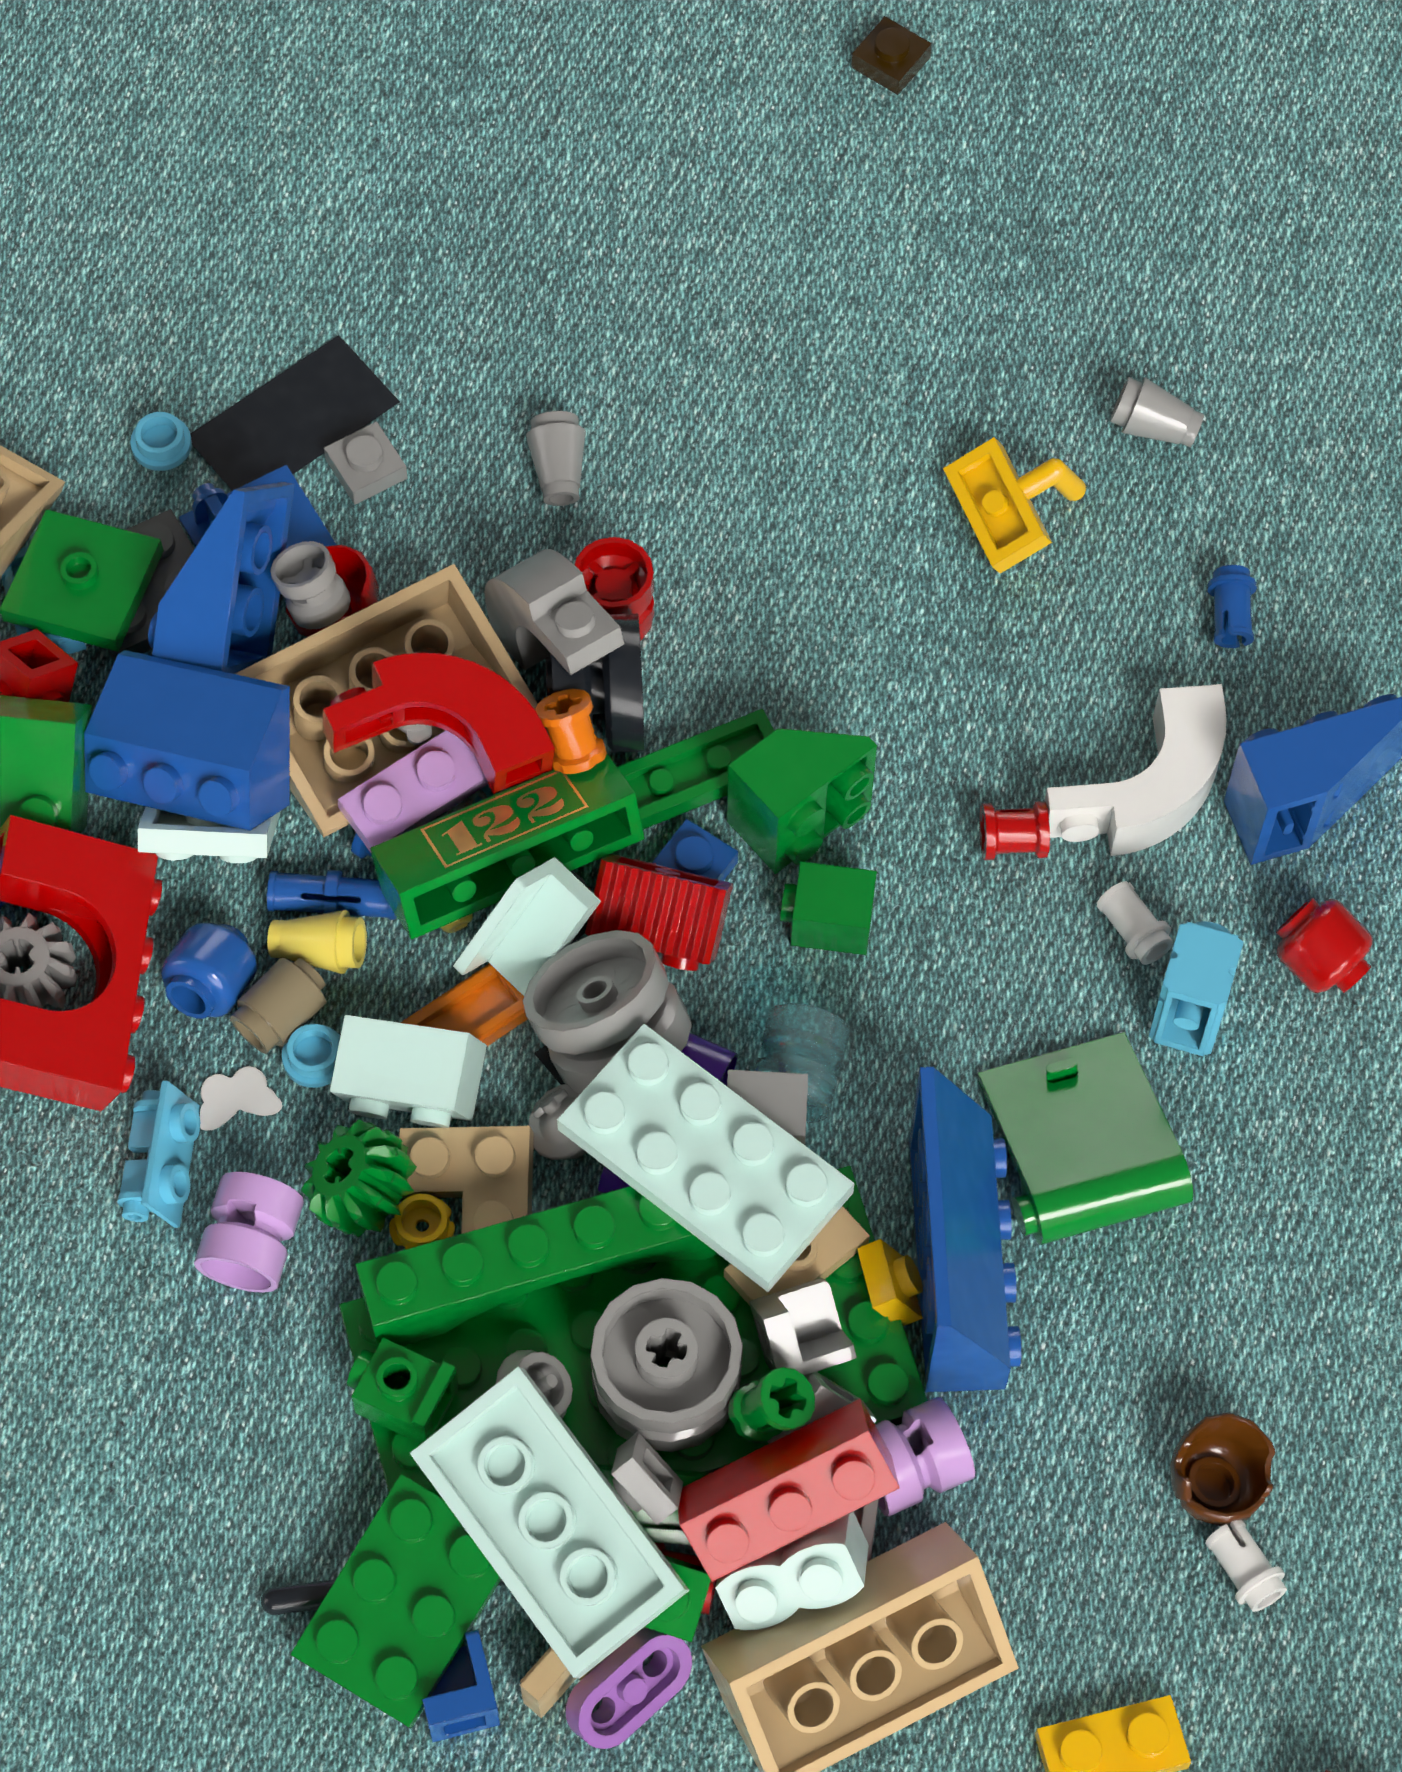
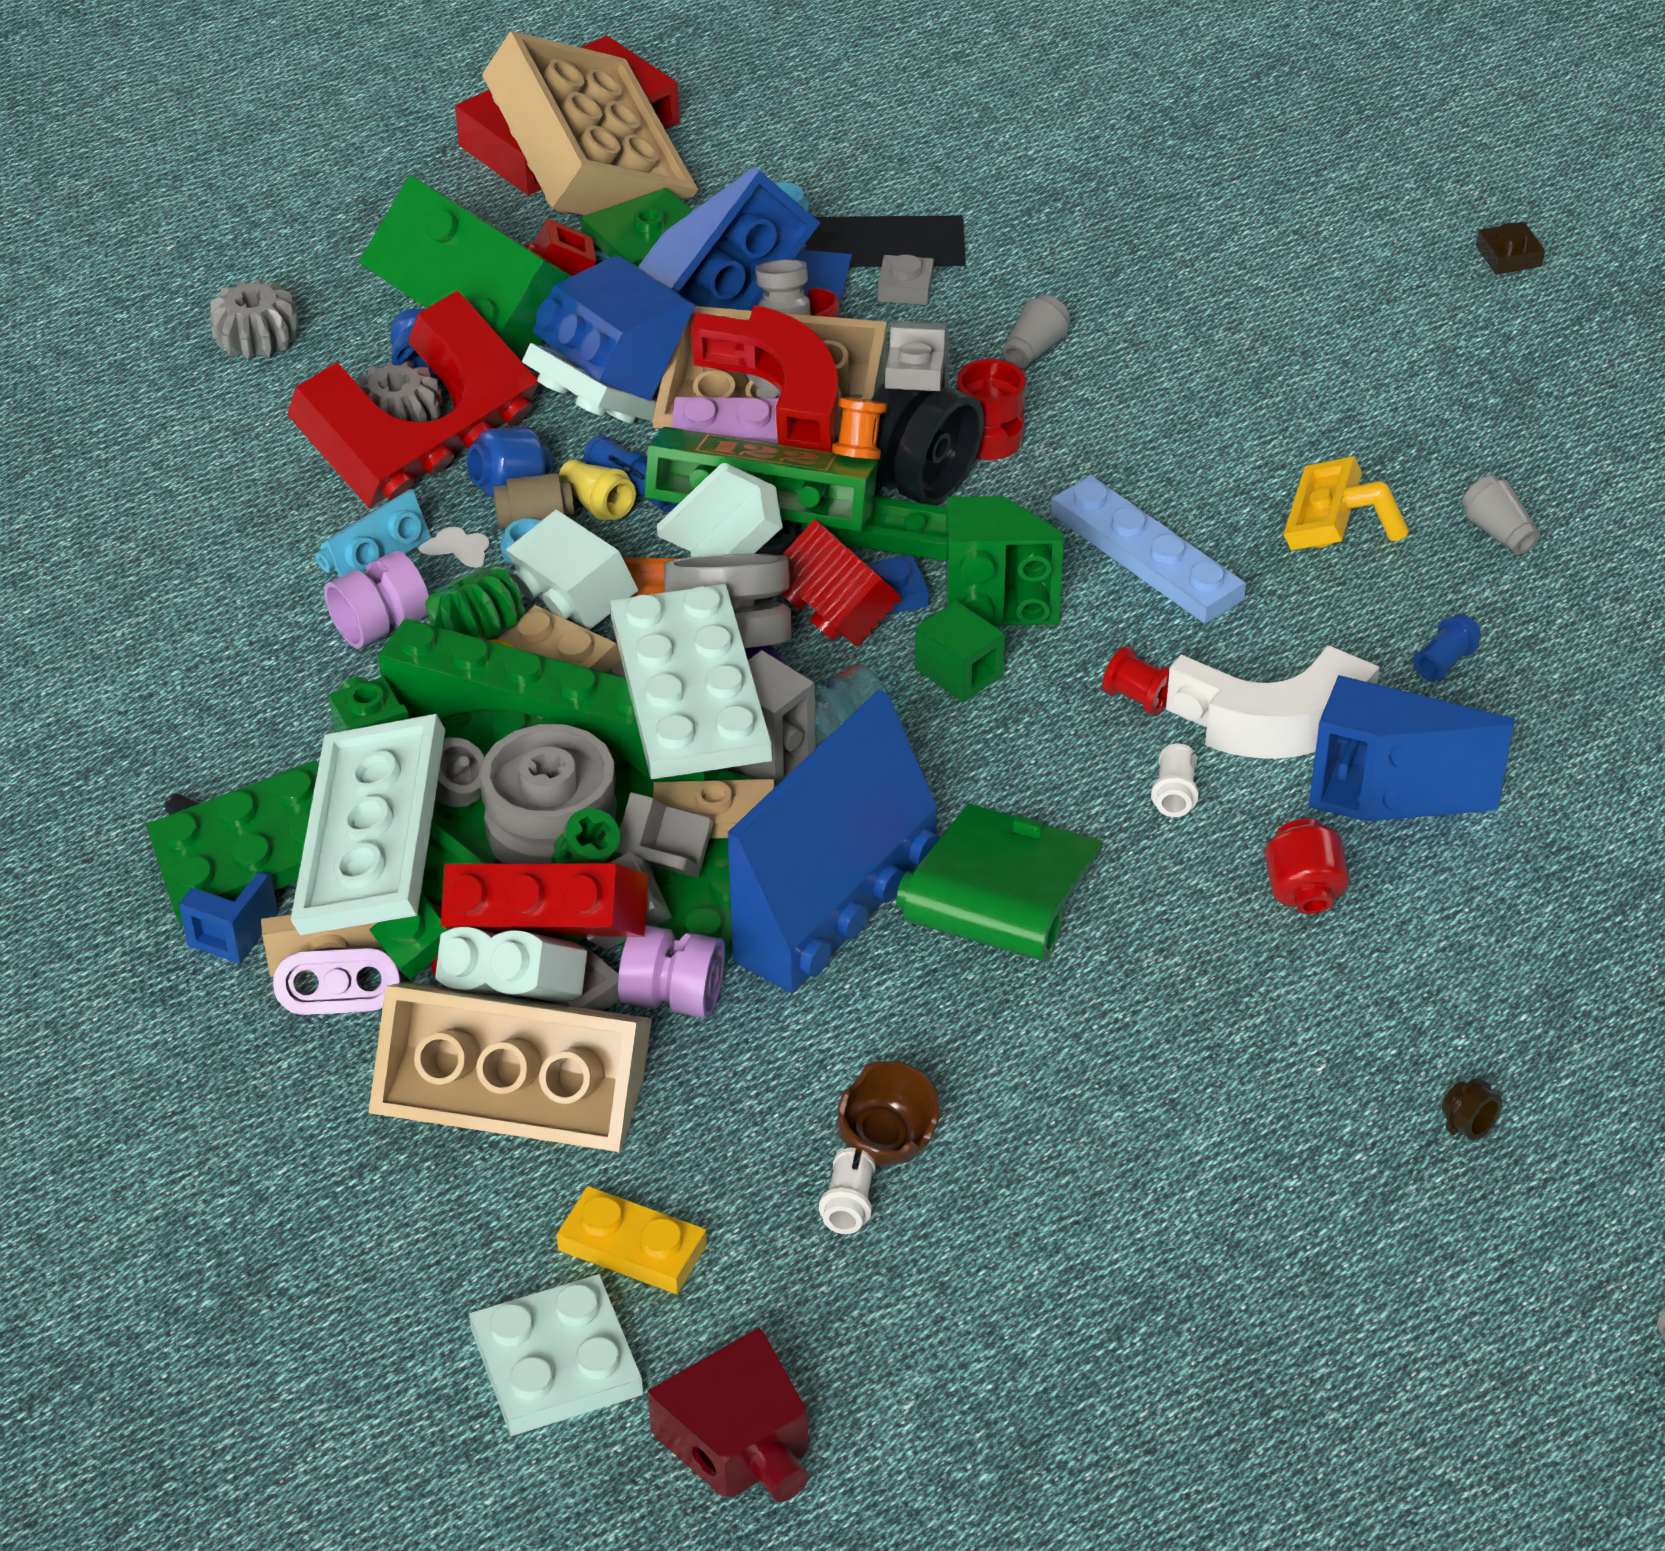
camera: 40 degrees right, 20 degrees down
(645, 1479) = (458, 835): light grey plate -> none
(878, 660) = (1148, 549): none -> light blue plate
(1196, 987) = (1169, 821): medium azure brick -> none

